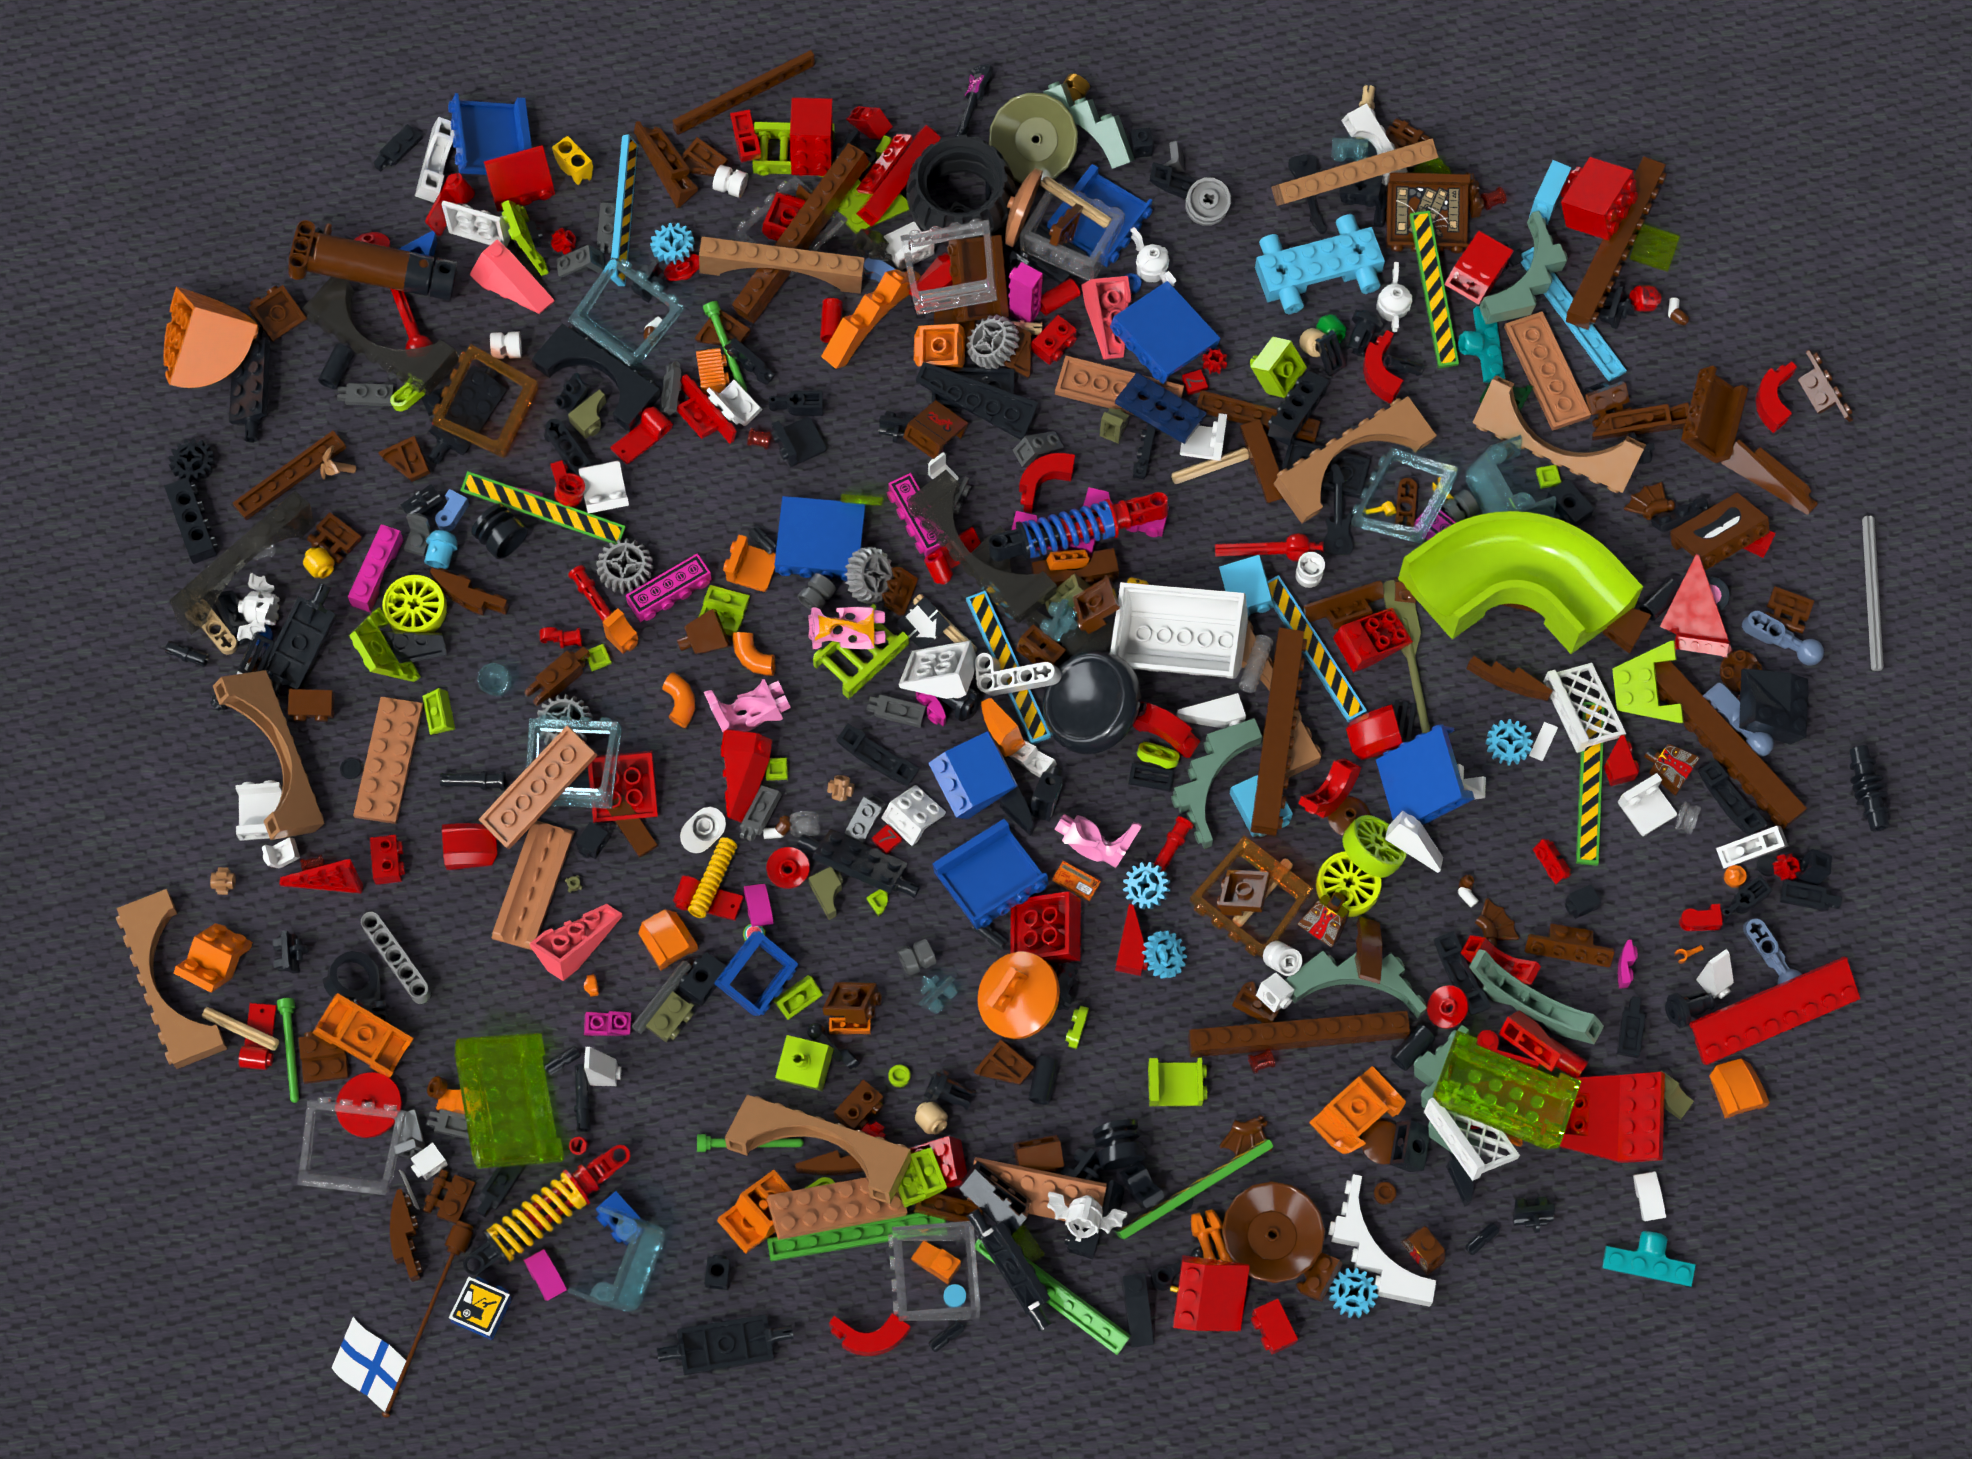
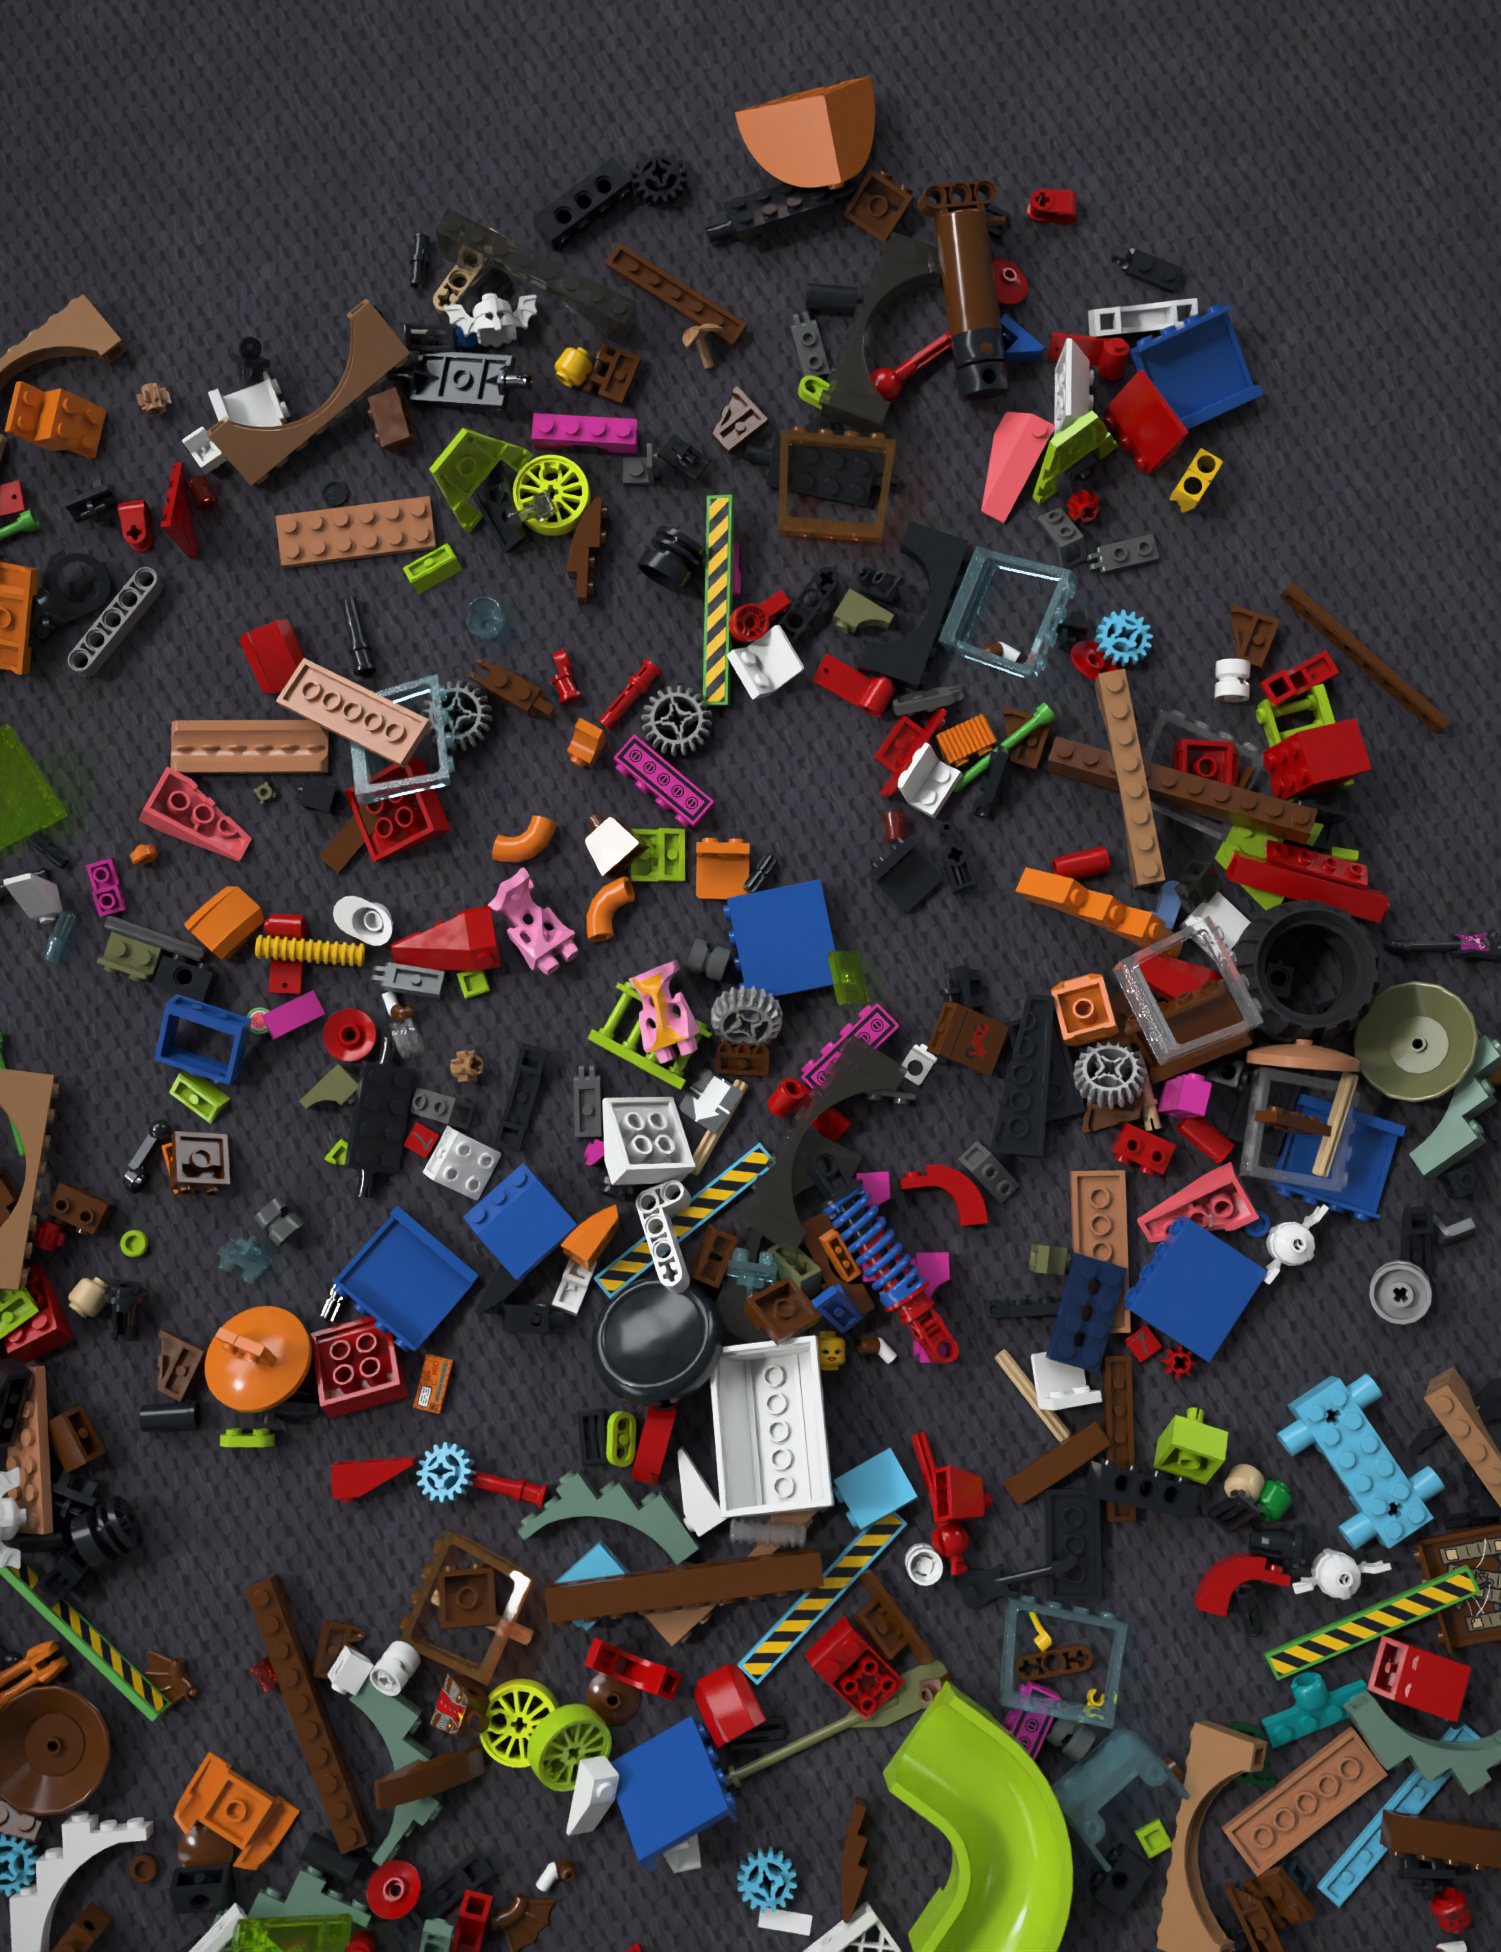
camera: 75 degrees right, 15 degrees up
(220, 794) = (250, 363): none -> black hips
(317, 922) = (136, 524): none -> red piece
(325, 196) = (1055, 207): none -> red piece
(386, 859) = (230, 571): red brick -> none
(426, 610) = (541, 509): none -> clear smoke leg
(440, 549) = (631, 499): medium azure piece -> none
(452, 512) = (684, 496): medium blue leg -> none
(506, 345) = (919, 481): white wheel -> none
(598, 657) = (554, 728): lime tile -> none
(624, 204) = (1160, 562): tile -> none
(635, 1069) = (59, 937): none -> clear light blue axle
(667, 163) = (1234, 595): reddish brown wedge -> none
(804, 1063) = (110, 1129): lime brick -> none
(870, 121) = (1374, 827): red slope -> none
(1088, 841) = (483, 1382): bright pink hips -> none
(1106, 567) = (838, 1308): none -> blue slope
(1143, 559) = (875, 1345): none -> arm
(1164, 954) = (362, 1520): medium azure gear -> none
(1176, 1083) = (212, 1577): lime panel -> none
(1266, 531) = (958, 1495): none -> red torso
(1397, 424) = (1036, 1526): medium nougat arch -> none

